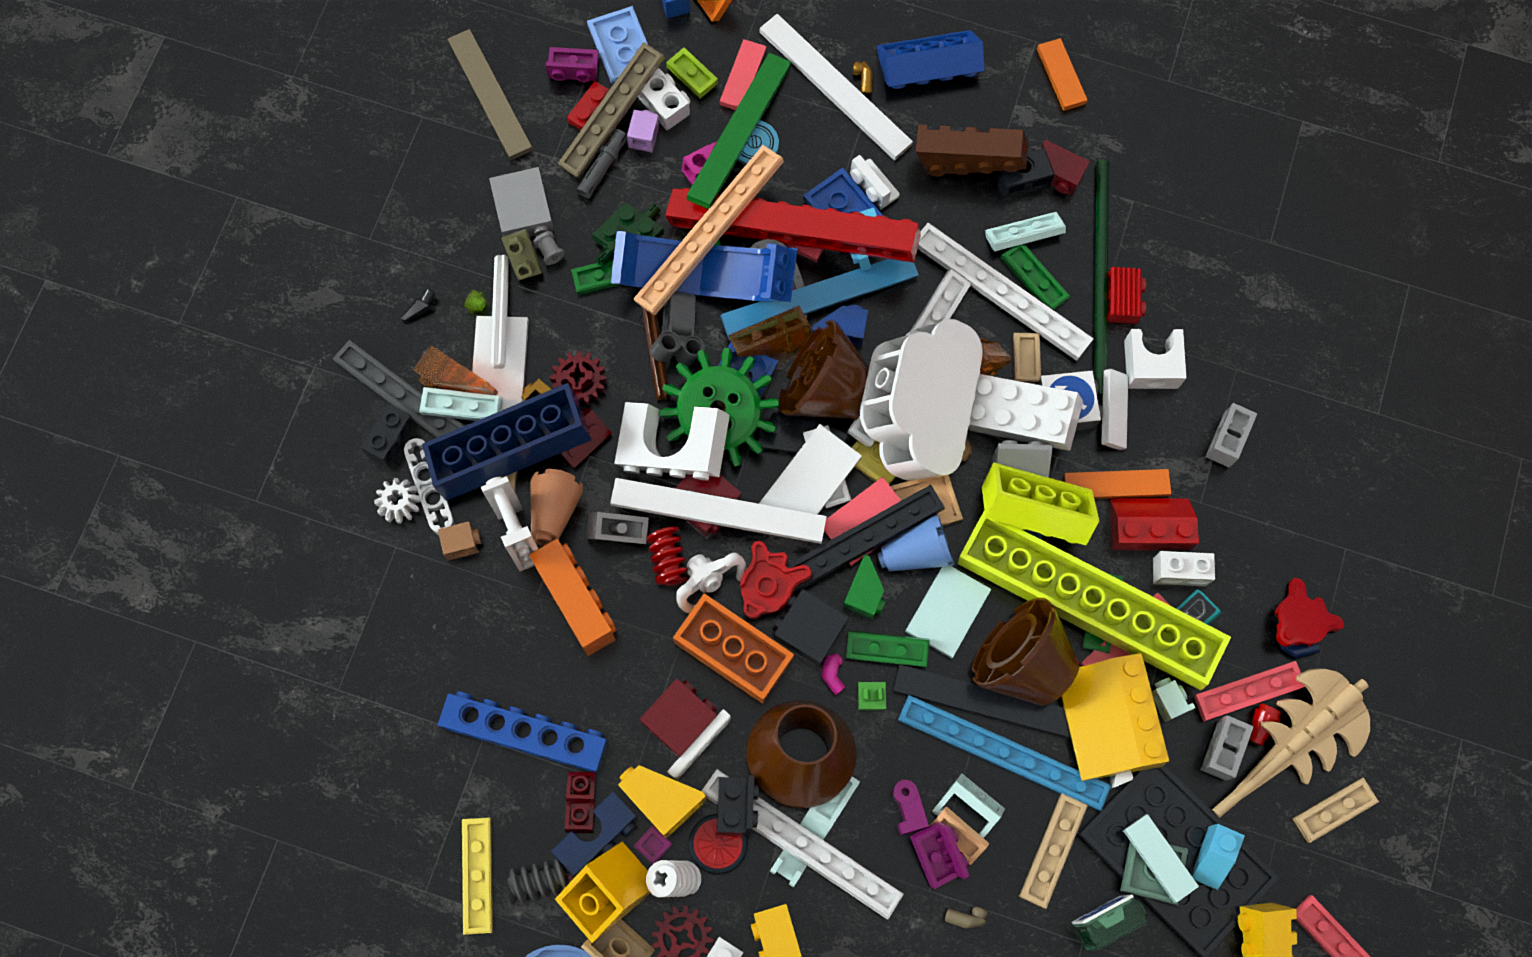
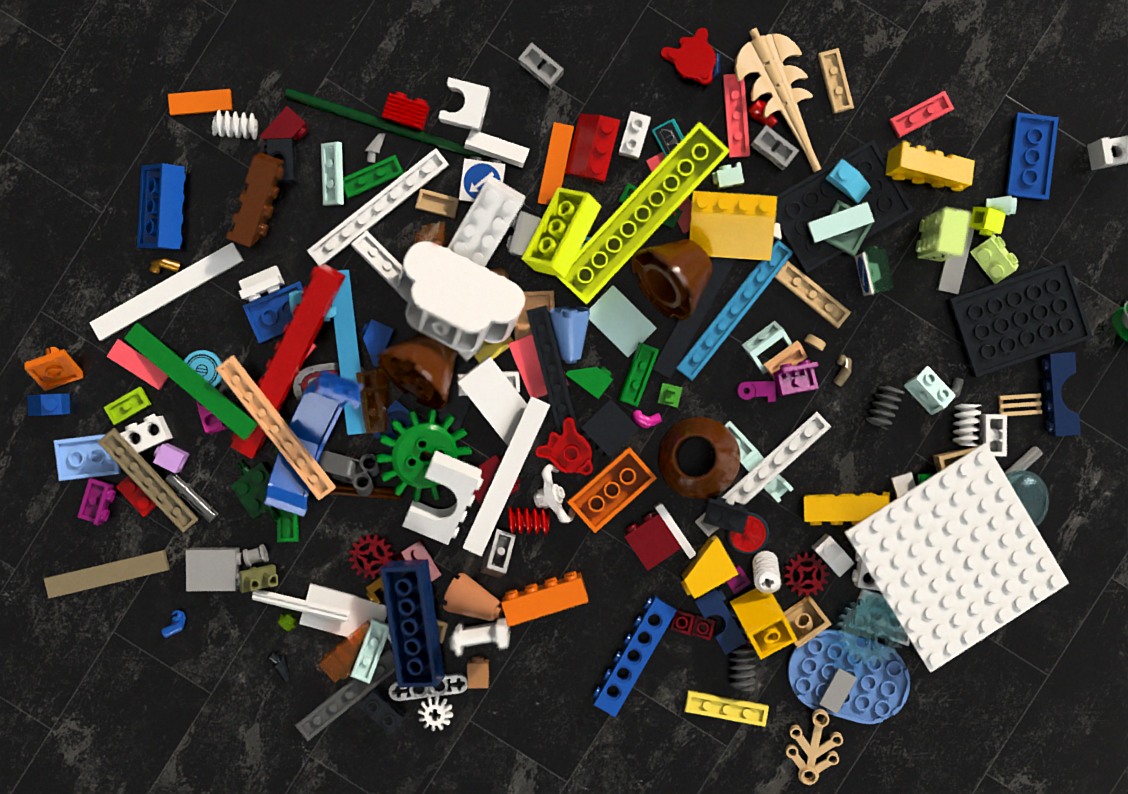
camera: 70 degrees left, 15 degrees up
(446, 182) = (177, 624): none -> blue arm
(993, 869) = (815, 342): none -> tan tile
(1048, 113) = (235, 125): none -> white piece
(1070, 271) = (374, 147): none -> light grey bar

